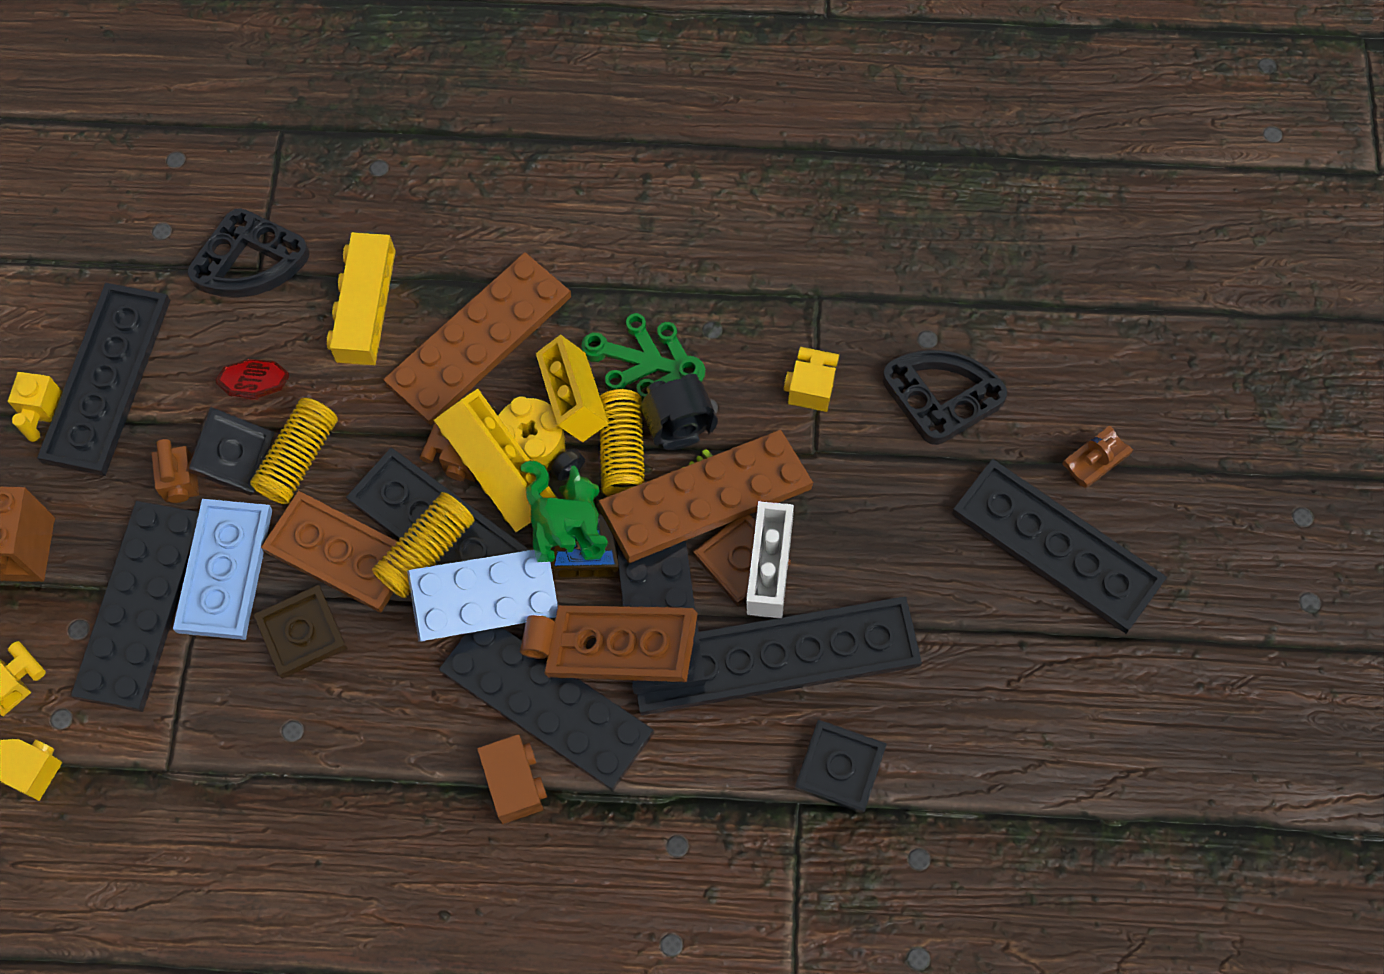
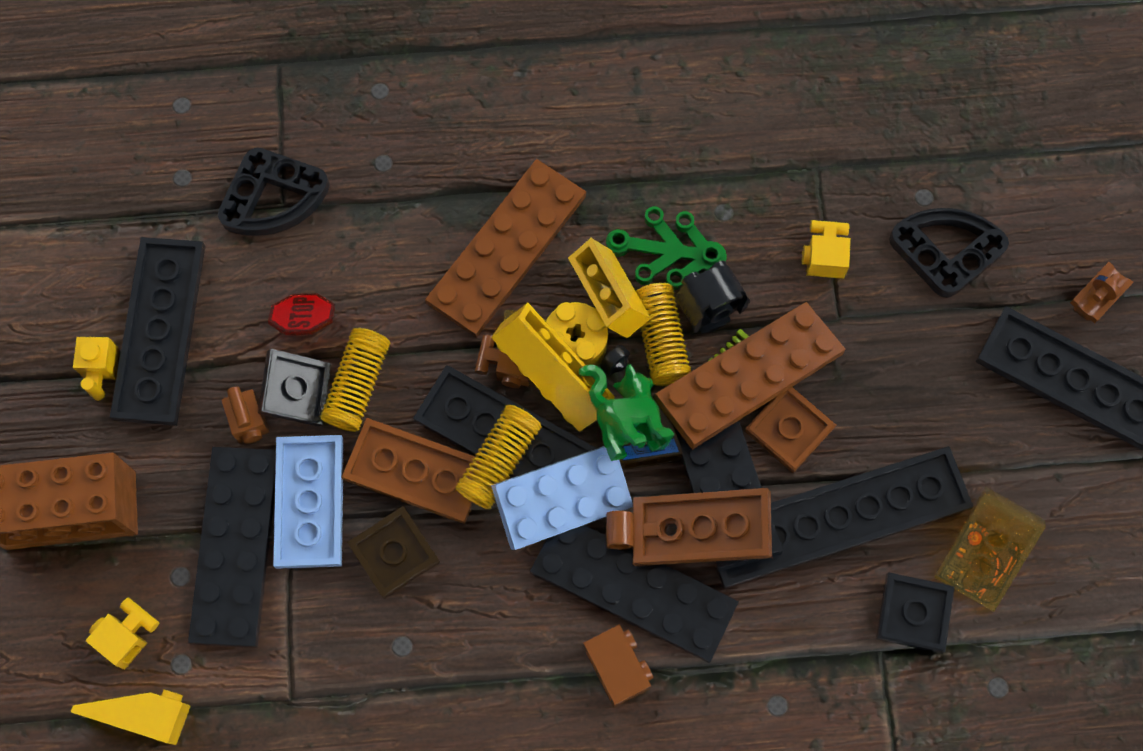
camera: 10 degrees left, 5 degrees up
(361, 299) = (390, 223): yellow brick -> none
(770, 559) = (823, 429): white brick -> none
(932, 709) = (990, 548): none -> clear yellow slope

